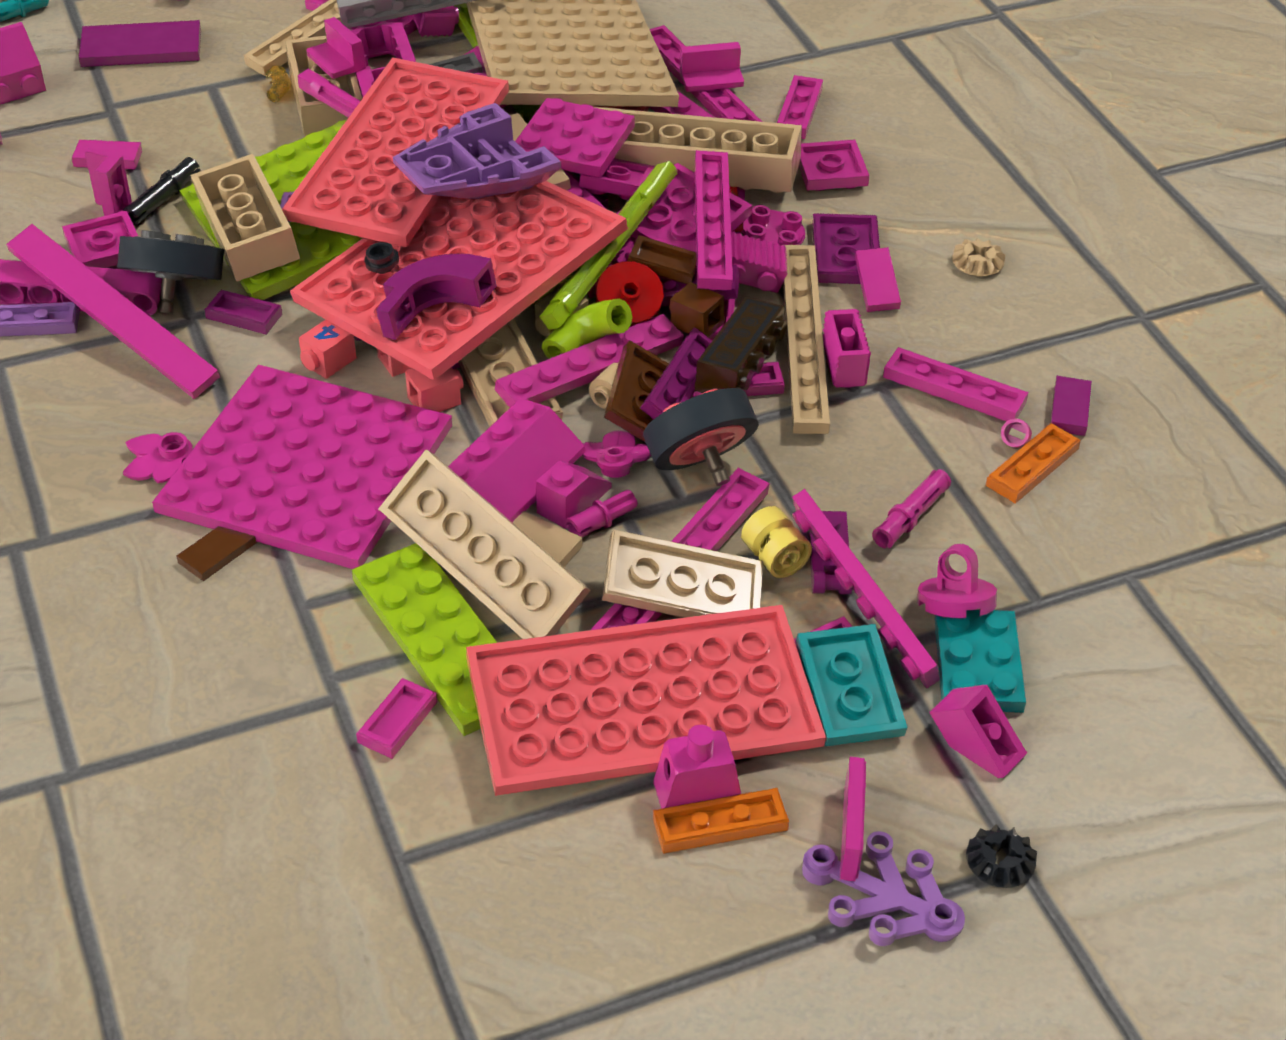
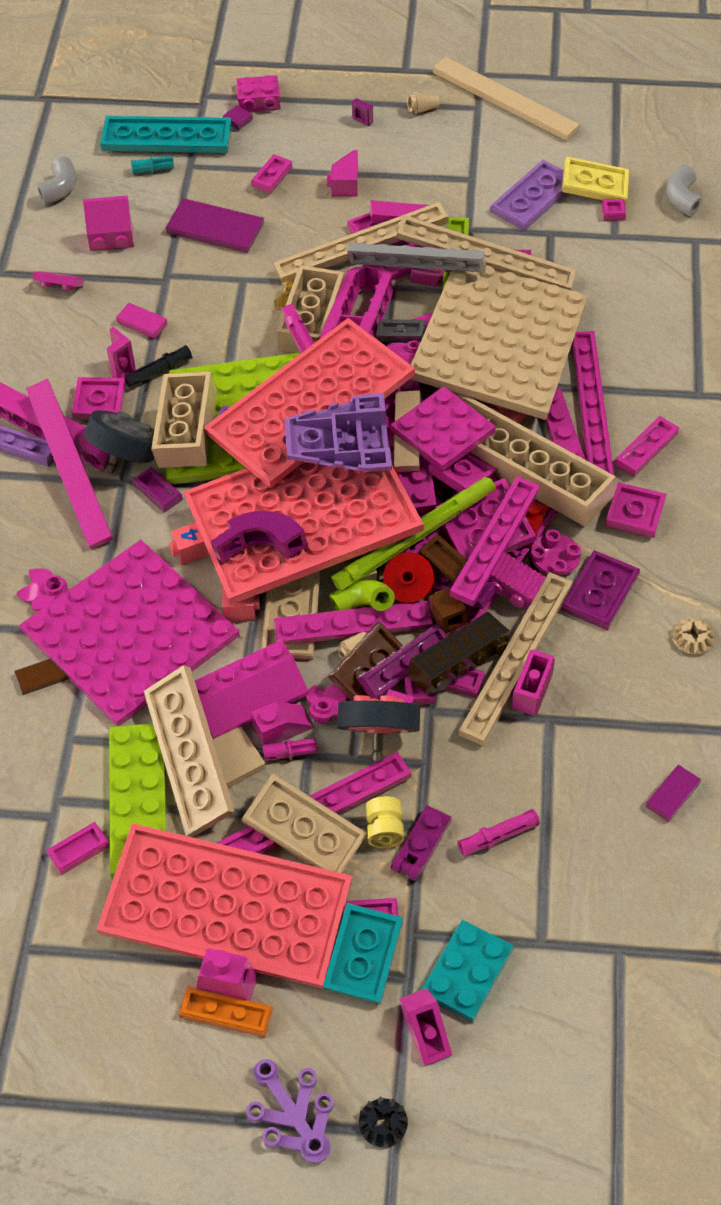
camera: 30 degrees right, 10 degrees up
(341, 53) = (323, 292): dark pink panel -> none
(381, 258) = (247, 492): black plate -> none
(711, 66) = (598, 388): dark pink panel -> none
(853, 819) = (299, 1053): dark pink tile -> none
(871, 599) = (415, 897): dark pink plate -> none
(877, 279) = (600, 629): dark pink tile -> none
(955, 384) = (598, 743): dark pink plate -> none
(957, 592) = (479, 914): dark pink tile -> none
(1020, 426) = (610, 804): dark pink hinge -> none
(1033, 463) = (613, 829): orange tile -> none

